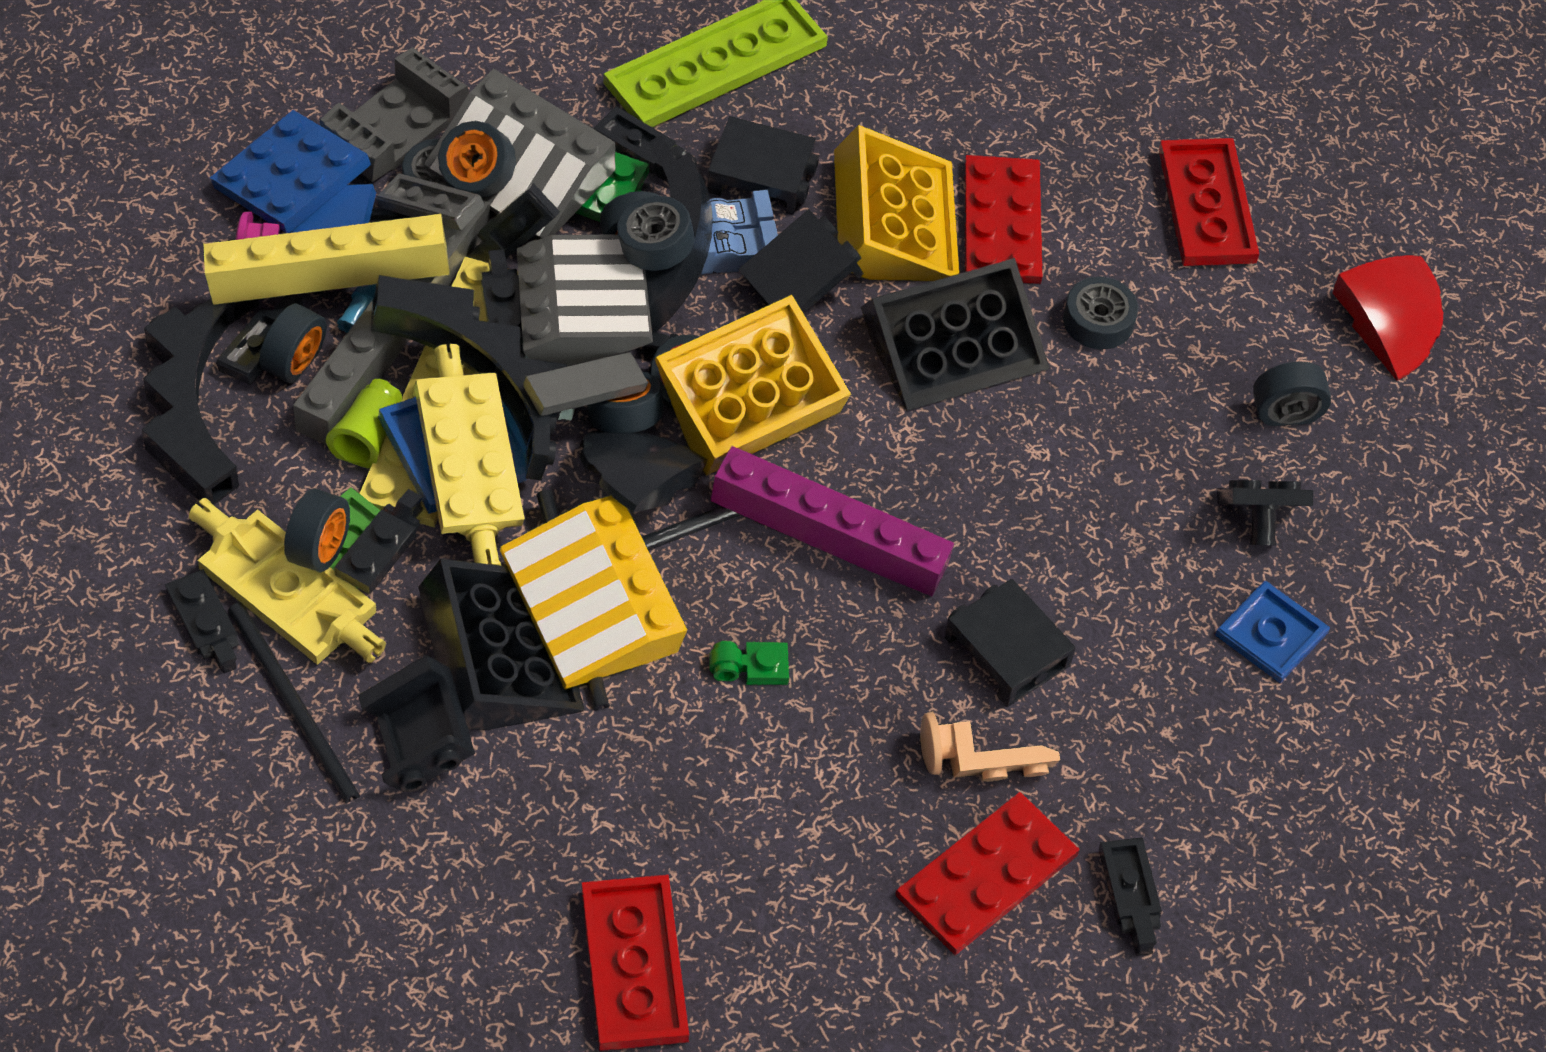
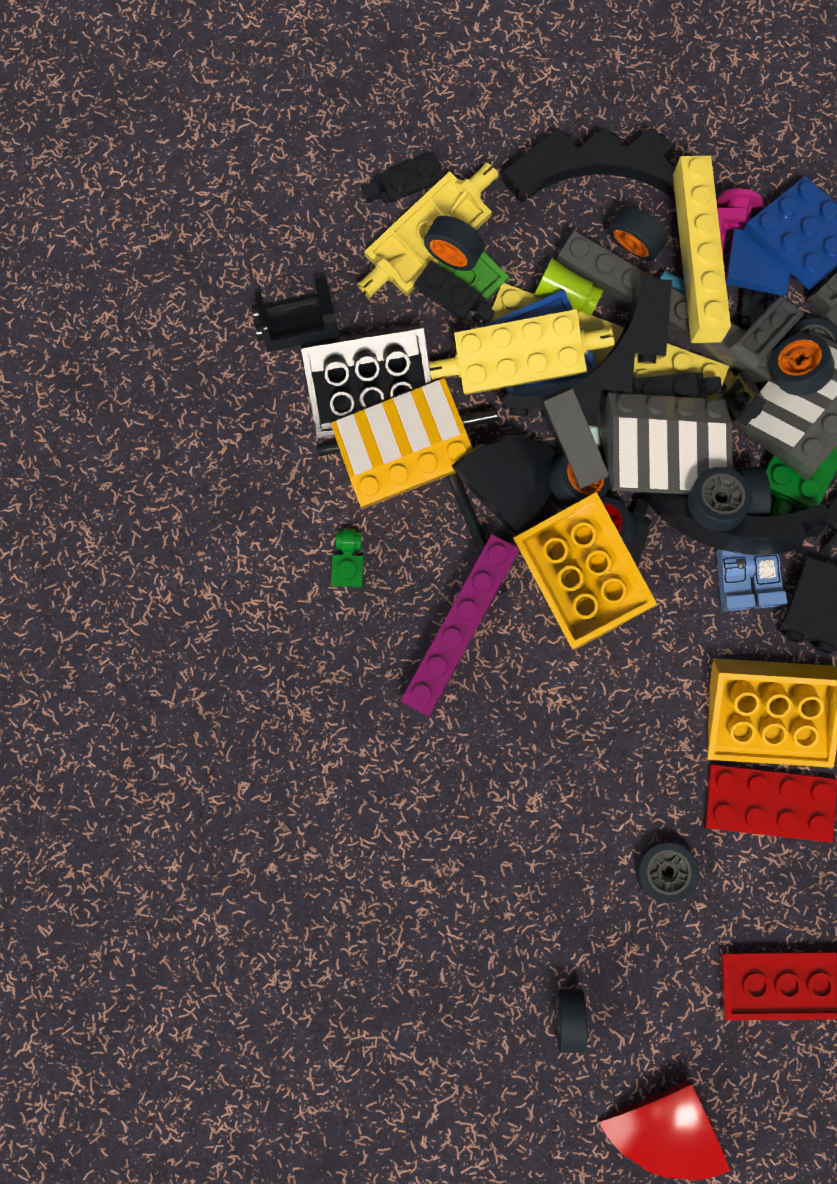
camera: 100 degrees right, 25 degrees up
(242, 355) = (638, 199): black hinge -> none
(293, 702) = (334, 239): black piece -> none
(634, 962) = (109, 459): red plate -> none
(801, 262) = (703, 623): black panel -> none
(956, 334) = (644, 747): black slope -> none
(956, 743) = (246, 720): light nougat piece -> none
(987, 873) = (162, 715): red plate -> none
(1011, 640) = (350, 752): black panel -> none
(1132, 891) = (136, 818): black hinge -> none
(1264, 503) = (465, 978): black plate -> none
(1272, 631) = (355, 967): blue tile -> none

